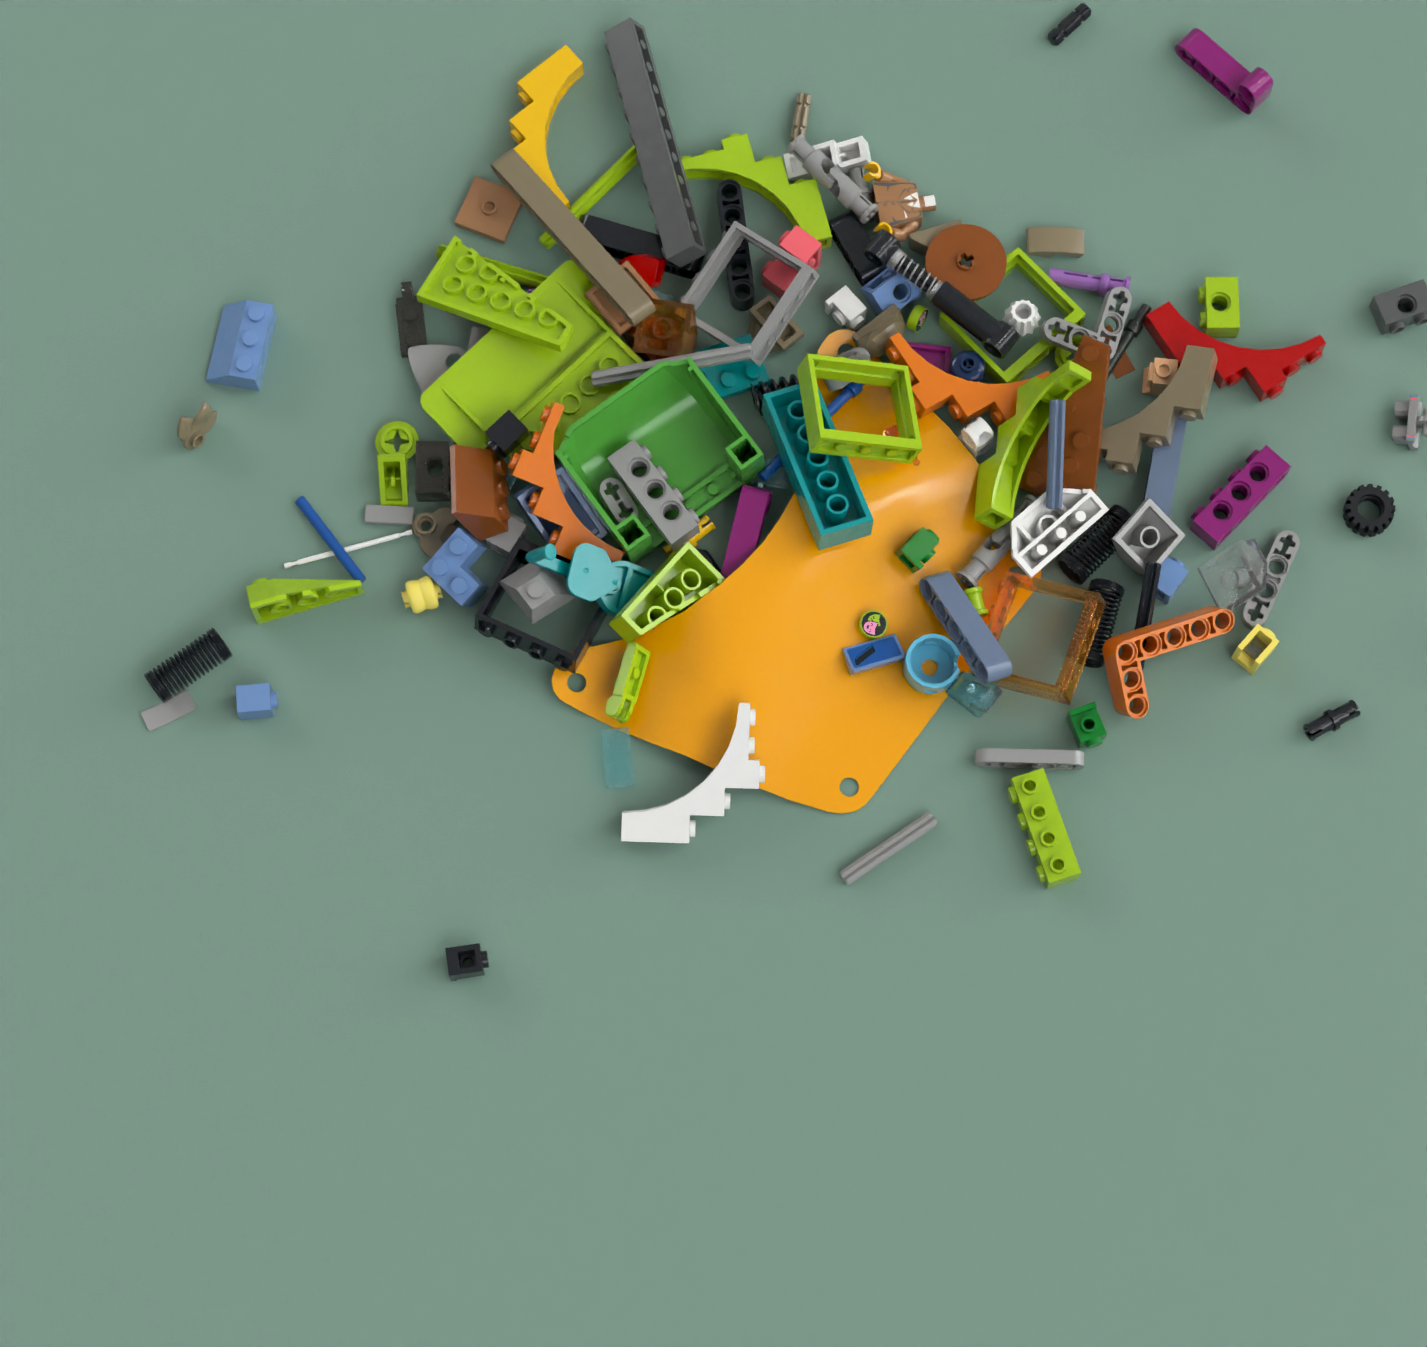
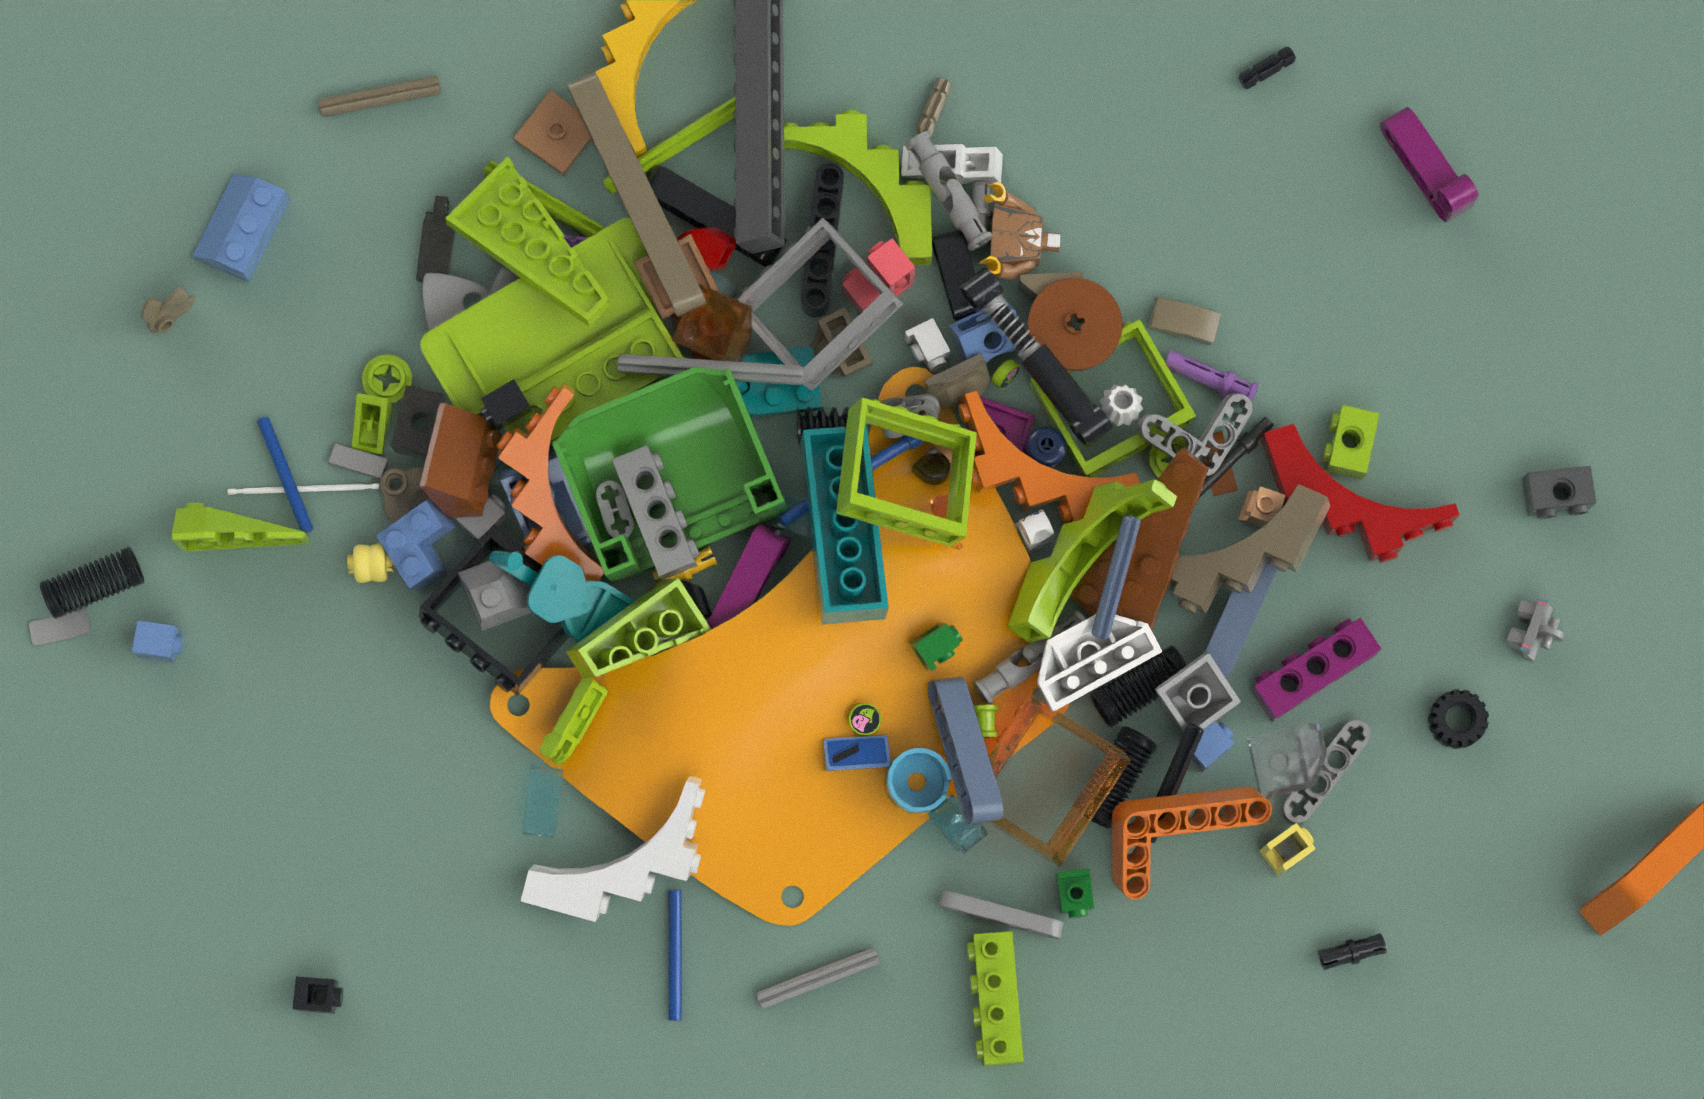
camera: 10 degrees right, 5 degrees up
(332, 214) = (379, 96): none -> dark tan axle
(762, 858) = (675, 955): none -> blue bar
(876, 407) = (932, 467): none -> dark brown tile

